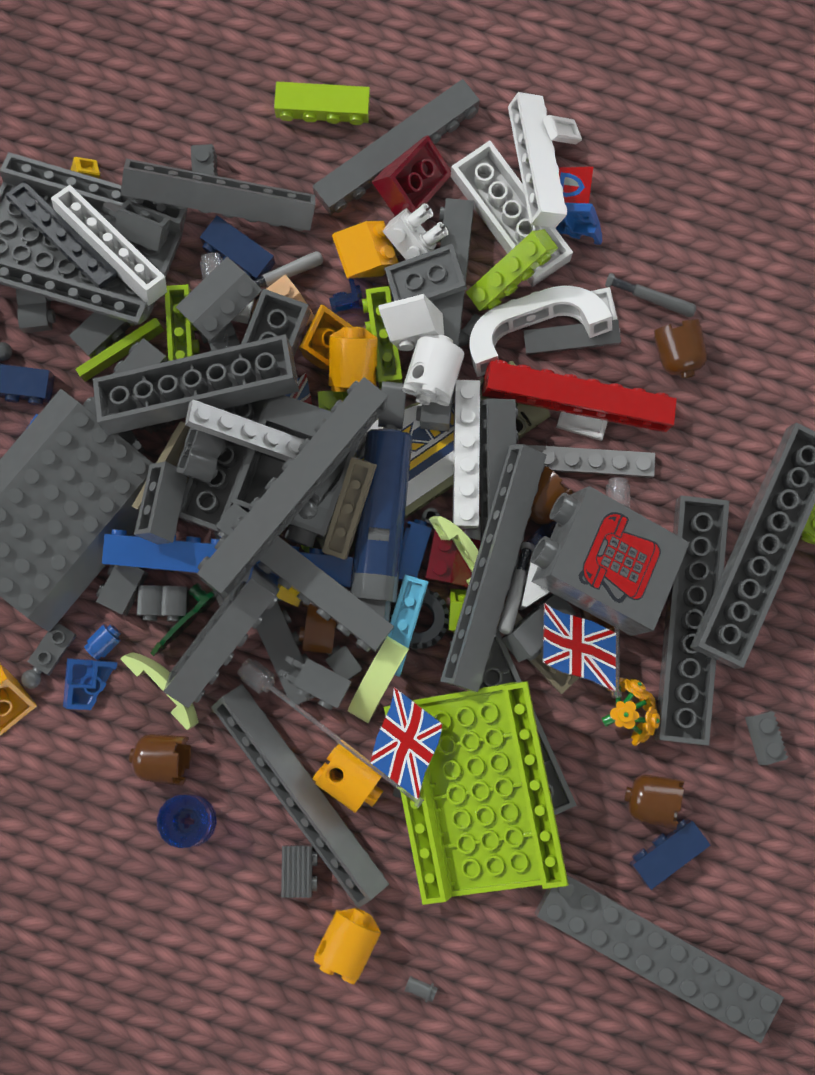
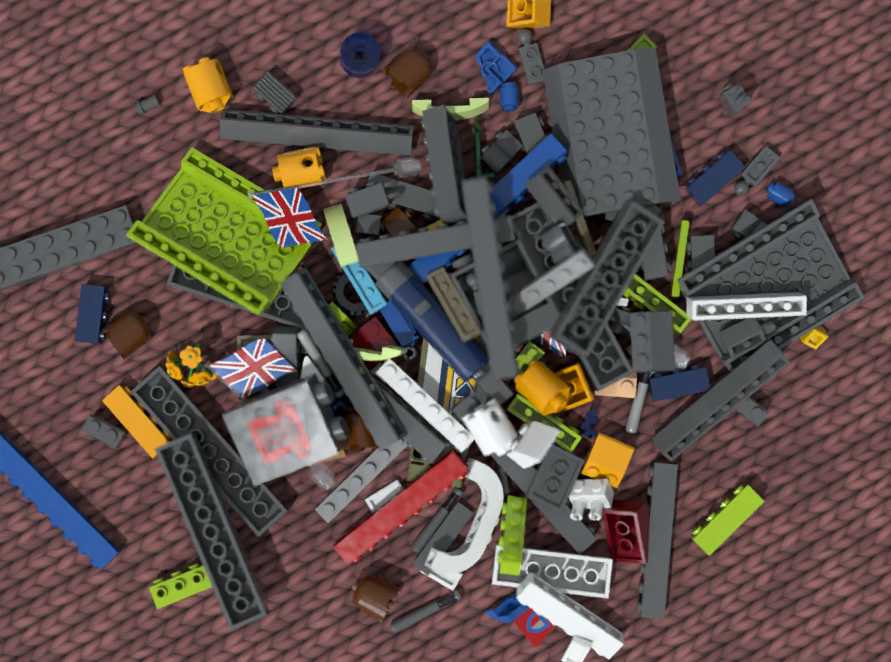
camera: 135 degrees right, 5 degrees up
(61, 235) = (780, 283): black plate -> none
(585, 355) = (435, 522): none -> dark grey piece
(728, 716) = (136, 420): none -> light orange brick

